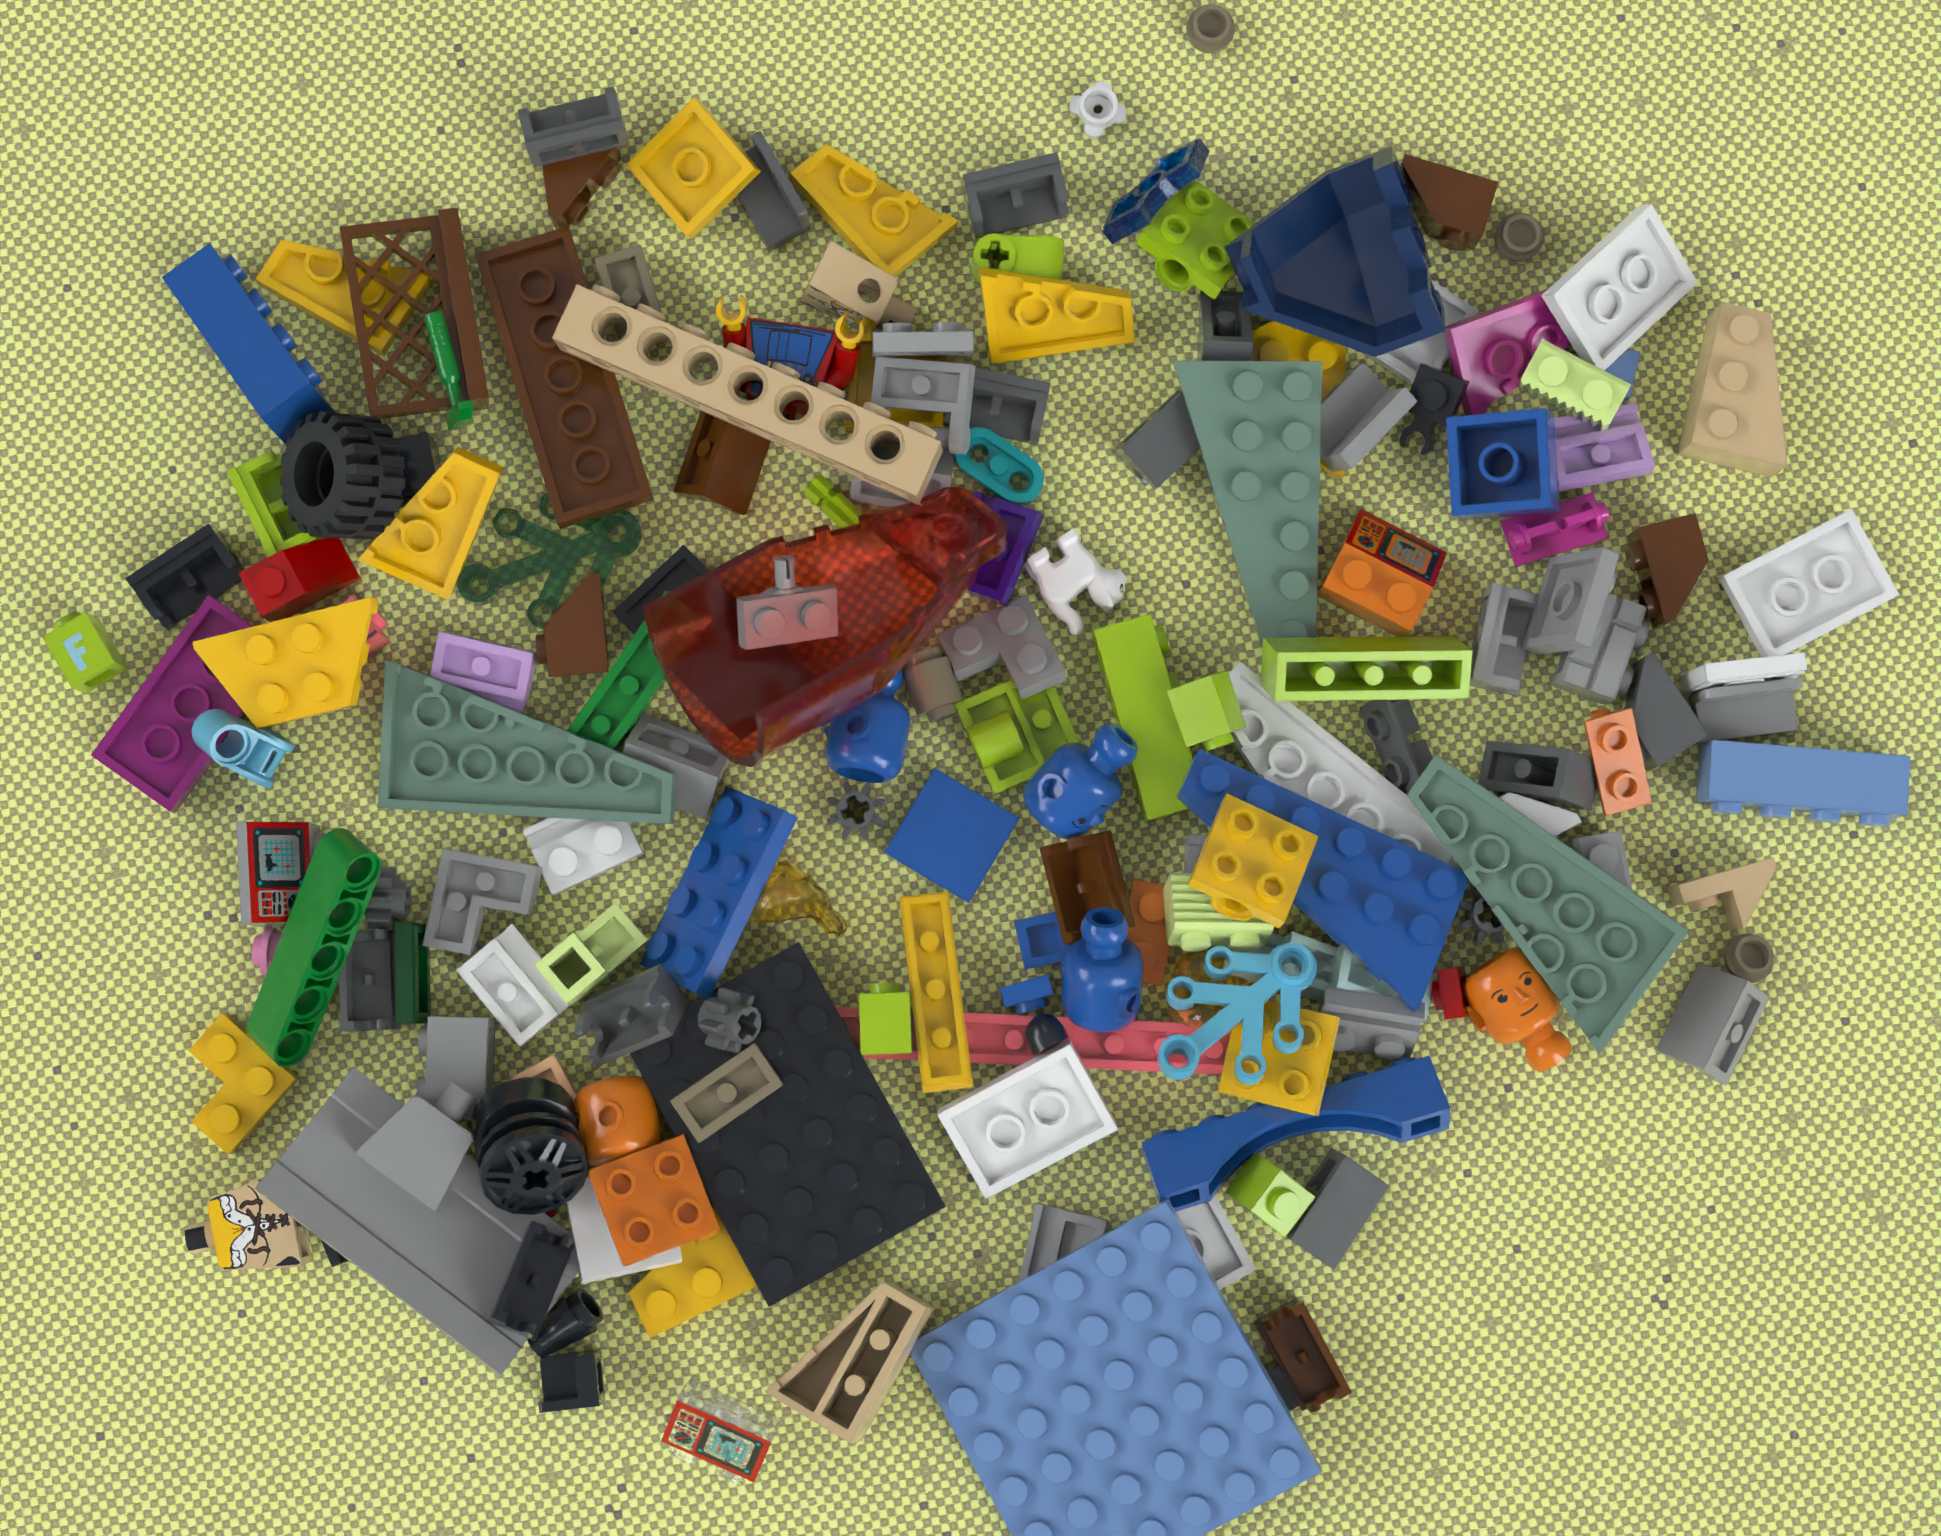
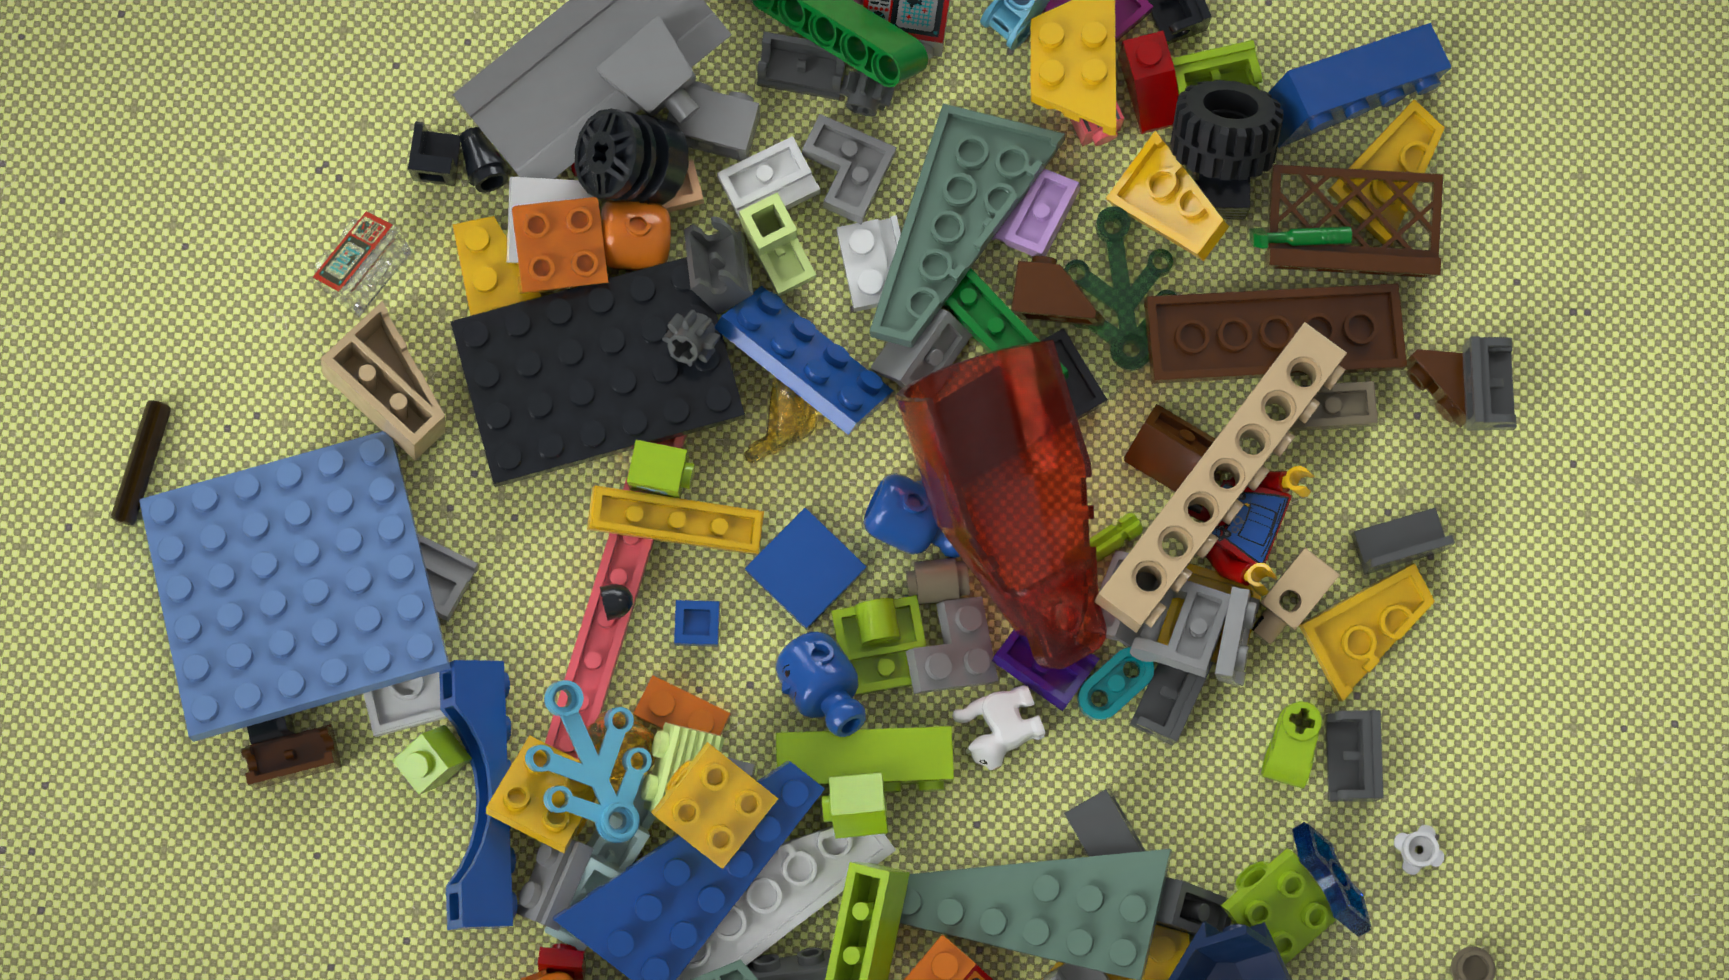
camera: 105 degrees right, 5 degrees down
(412, 974) = (797, 100): dark green tile -> none
(531, 1281) = (520, 136): black hinge -> none
(693, 168) = (1436, 482): yellow plate -> none
(727, 1092) = (632, 323): dark tan plate -> none
(786, 611) = (1026, 467): plate -> none
(843, 807) = (853, 484): dark grey gear -> none
(1026, 994) = (654, 597): blue plate -> none
(1027, 1119) = (549, 571): white plate -> none
(1051, 316) = (1238, 758): yellow wing -> none
(1082, 877) = (731, 668): reddish brown hinge -> none
(1102, 974) = (653, 660): blue piece -> none
(1341, 1206) = (408, 819): dark grey hinge -> none

